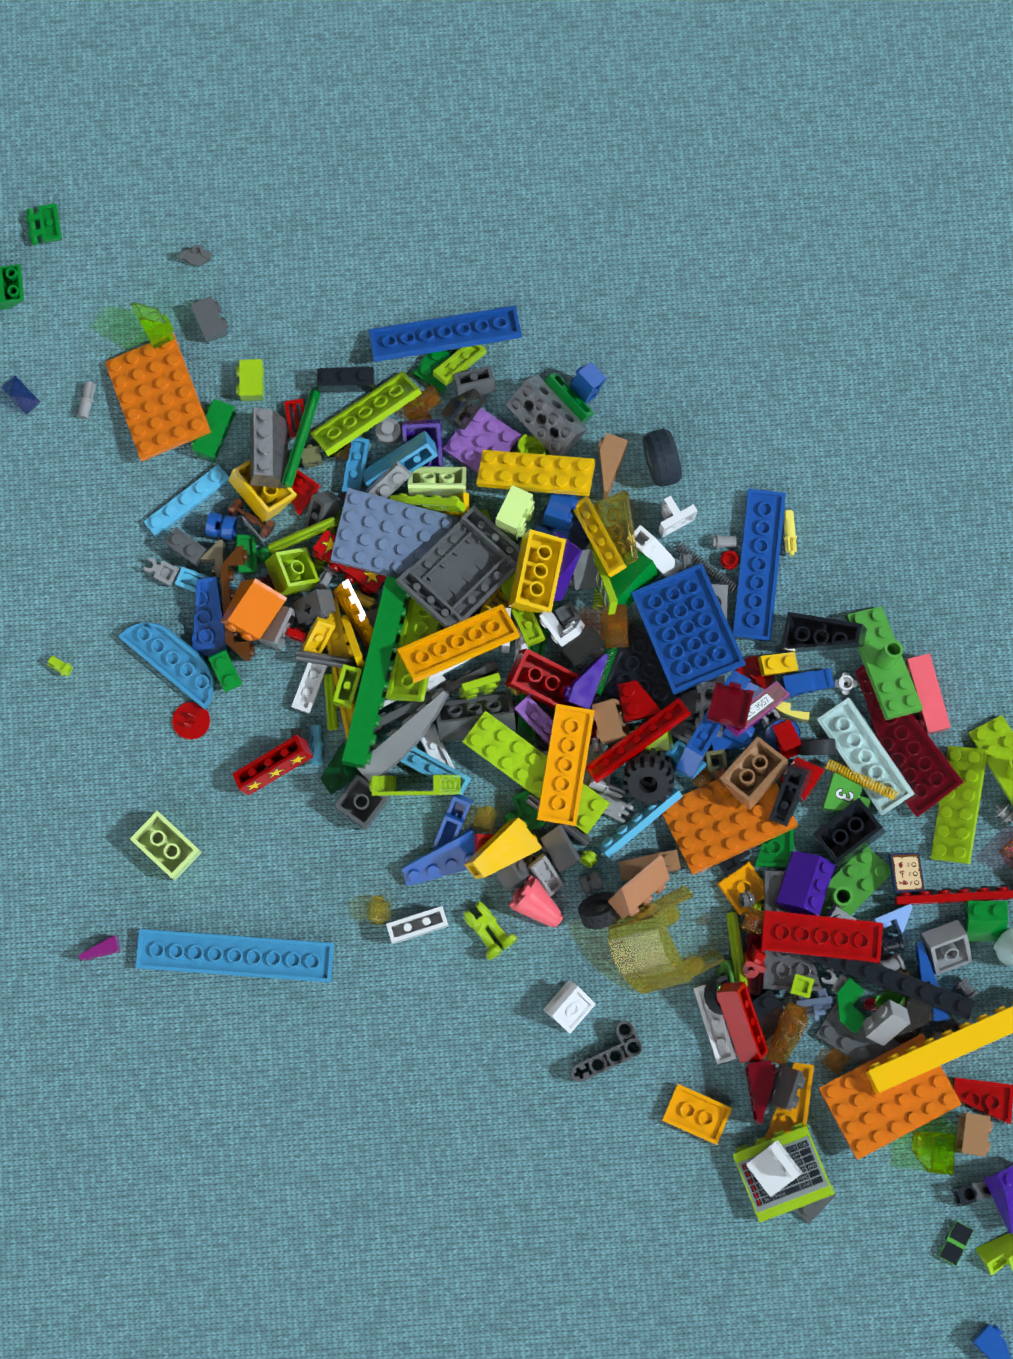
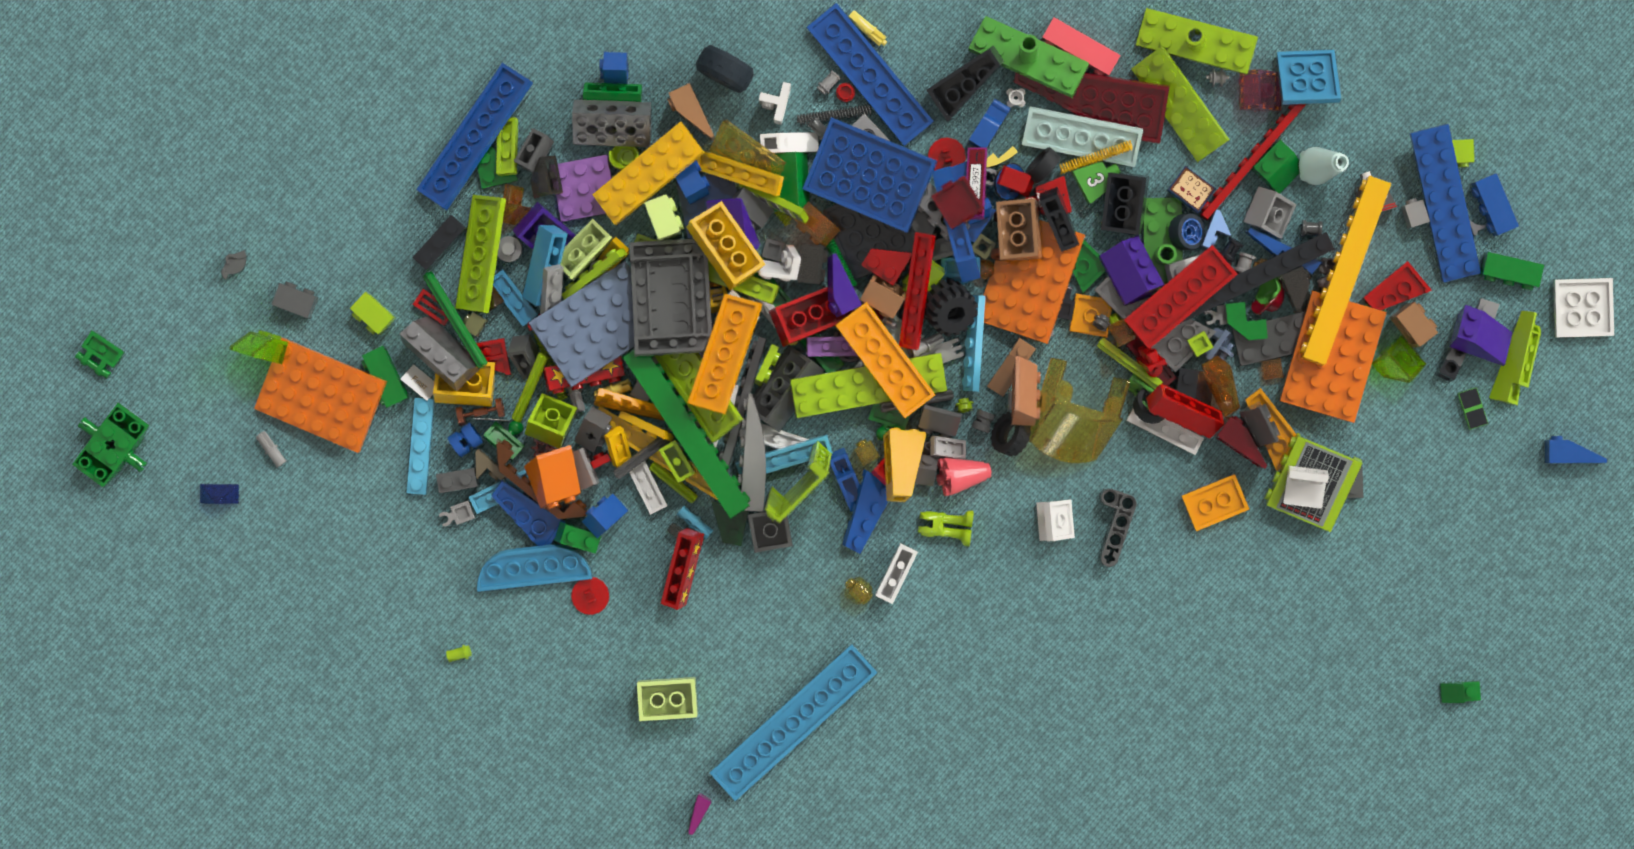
camera: 45 degrees left, 10 degrees up
(232, 456) = (419, 382): none -> white sticker
(259, 673) = (605, 515): none -> blue brick
(778, 664) = (955, 133): yellow plate -> none
(880, 895) = (1186, 232): none -> black wheel
(886, 1022) = (1282, 310): light grey brick -> none

